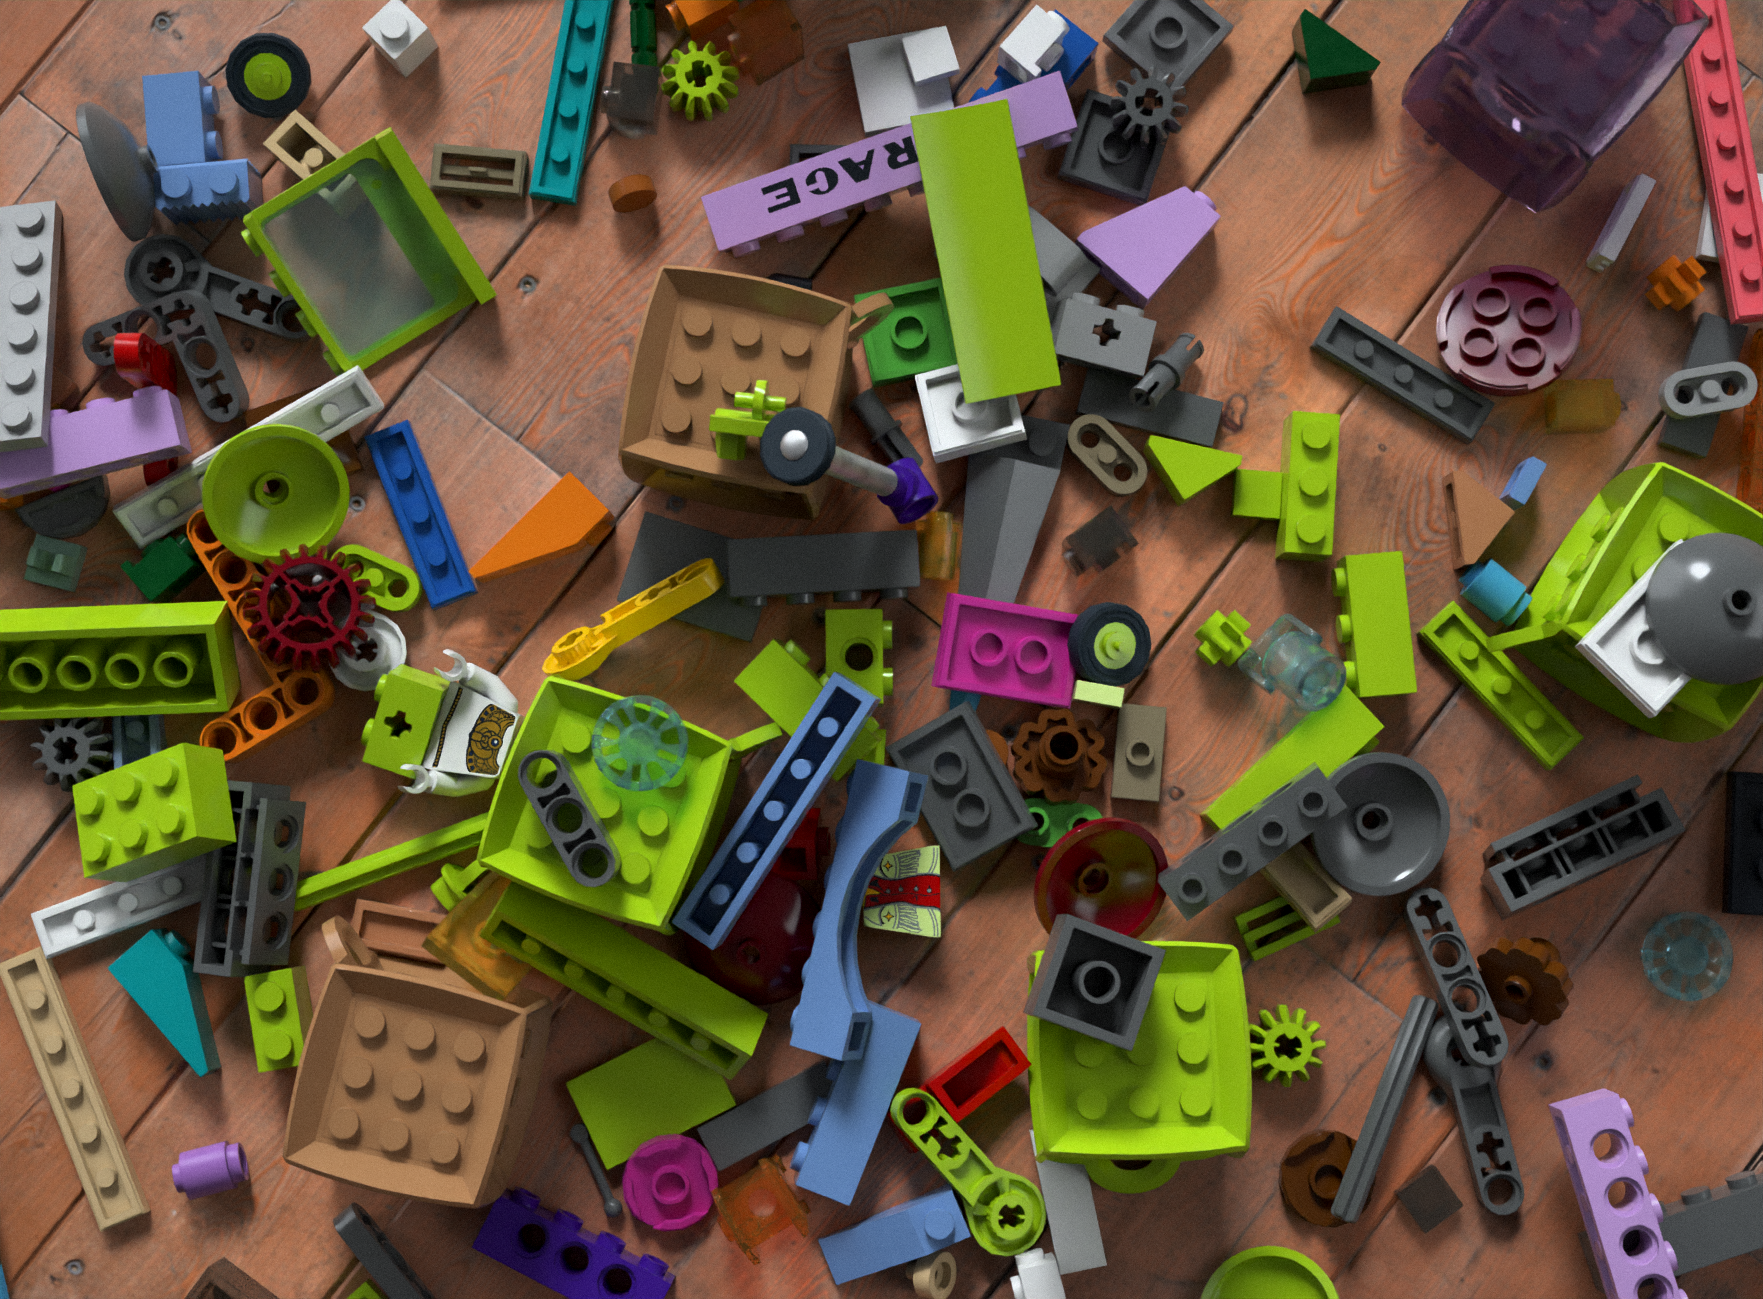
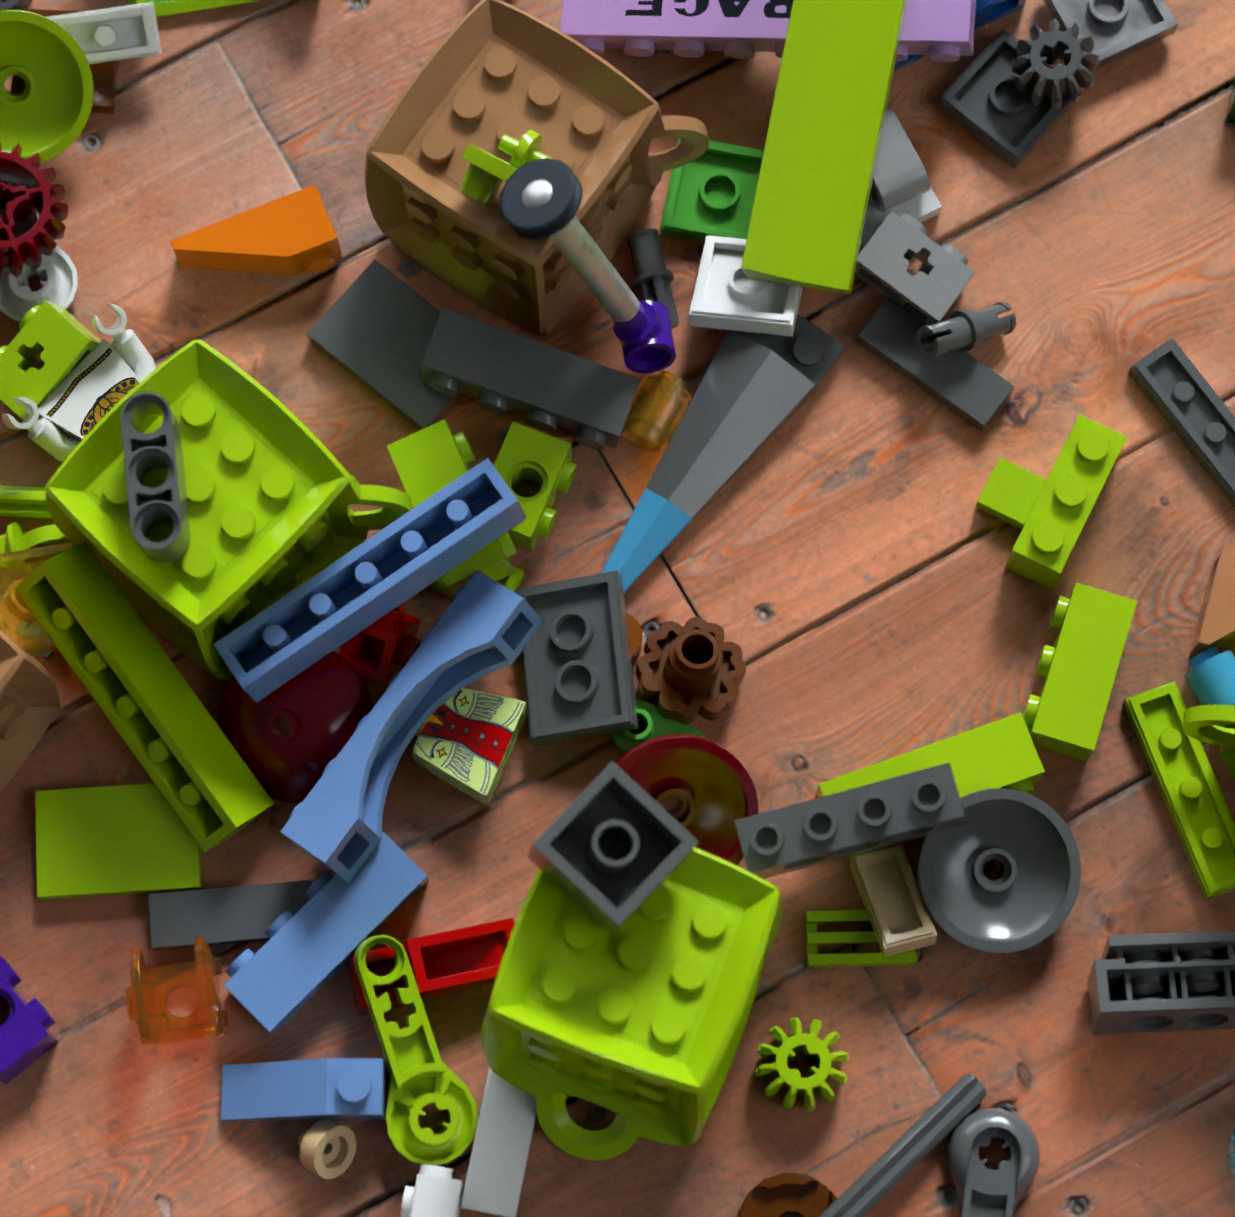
camera: 25 degrees right, 10 degrees down
(383, 575) = (85, 218): lime plate -> none
(421, 515) = (149, 177): blue tile -> none
(580, 1135) = (26, 852): dark grey hinge -> none
(586, 648) = (327, 350): yellow beam -> none
(639, 743) = (258, 436): clear light blue wheel -> none
(669, 1182) = (92, 936): dark pink tile -> none
(1005, 651) = (684, 540): dark pink tile -> none
(1097, 543) = (823, 472): clear smoke brick -> none
(1098, 694) = (757, 623): yellowish green tile -> none
(1109, 644) = (791, 577): black wheel -> none
(1110, 453) = (871, 393): dark tan plate -> none
(1138, 752) = (776, 702): dark tan plate -> none
(1150, 242) = (1004, 199): lavender slope -> none
(1188, 467) = (951, 436): lime slope -> none
(1222, 638) = (913, 618): lime gear -> none
(1295, 664) = (977, 674): clear light blue piece -> none
(1461, 975) = (1008, 1066): dark grey beam -> none
(1525, 979) = (1087, 1097): reddish brown plant -> none

